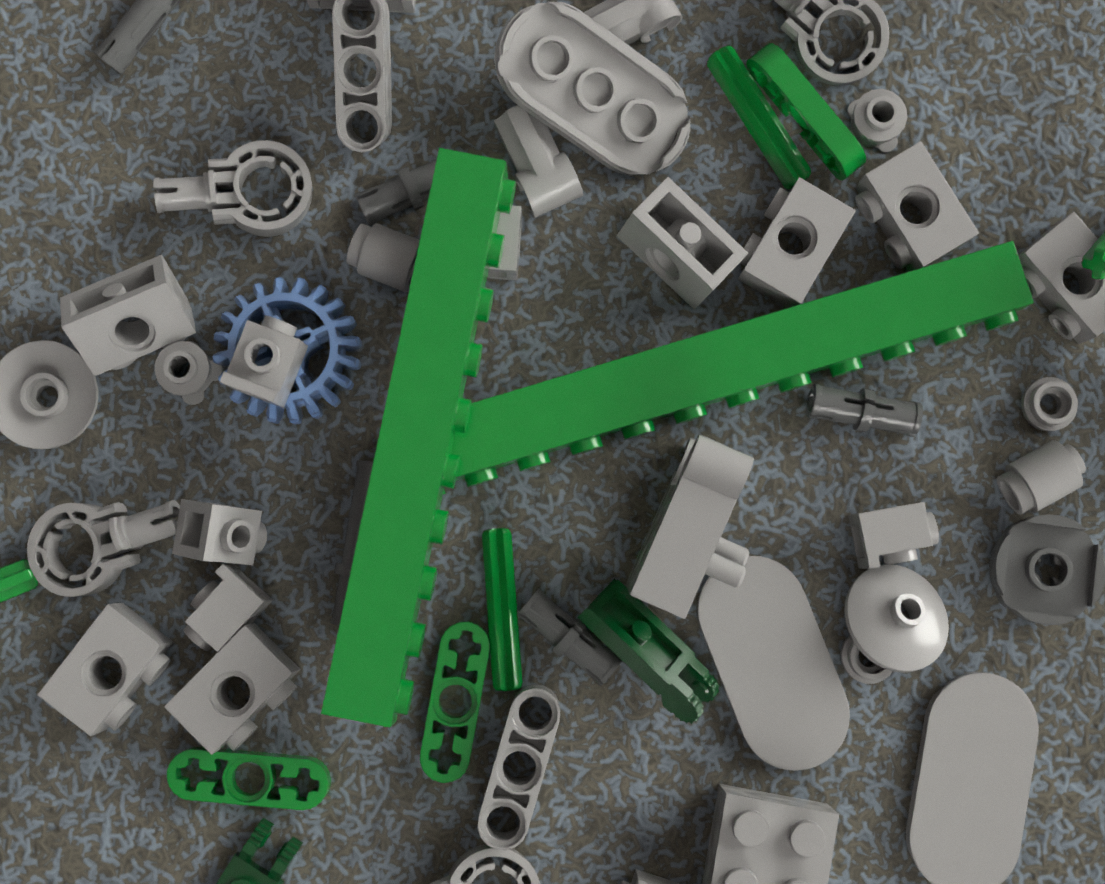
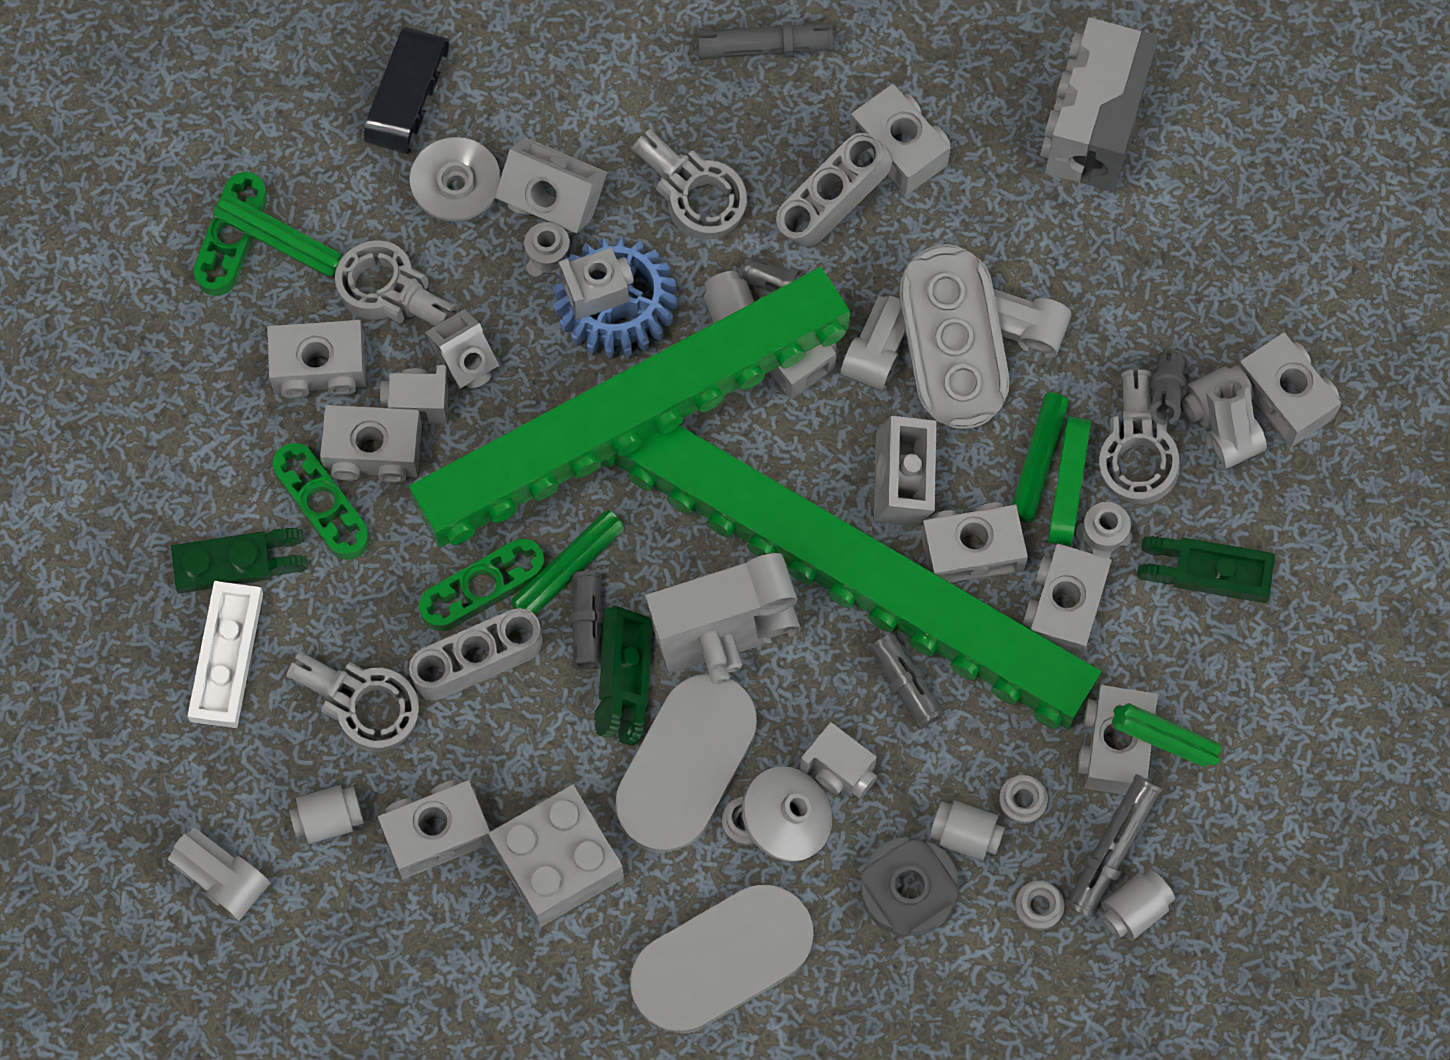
camera: 50 degrees right, 15 degrees down
(987, 63) = (1210, 568): none -> dark green hinge

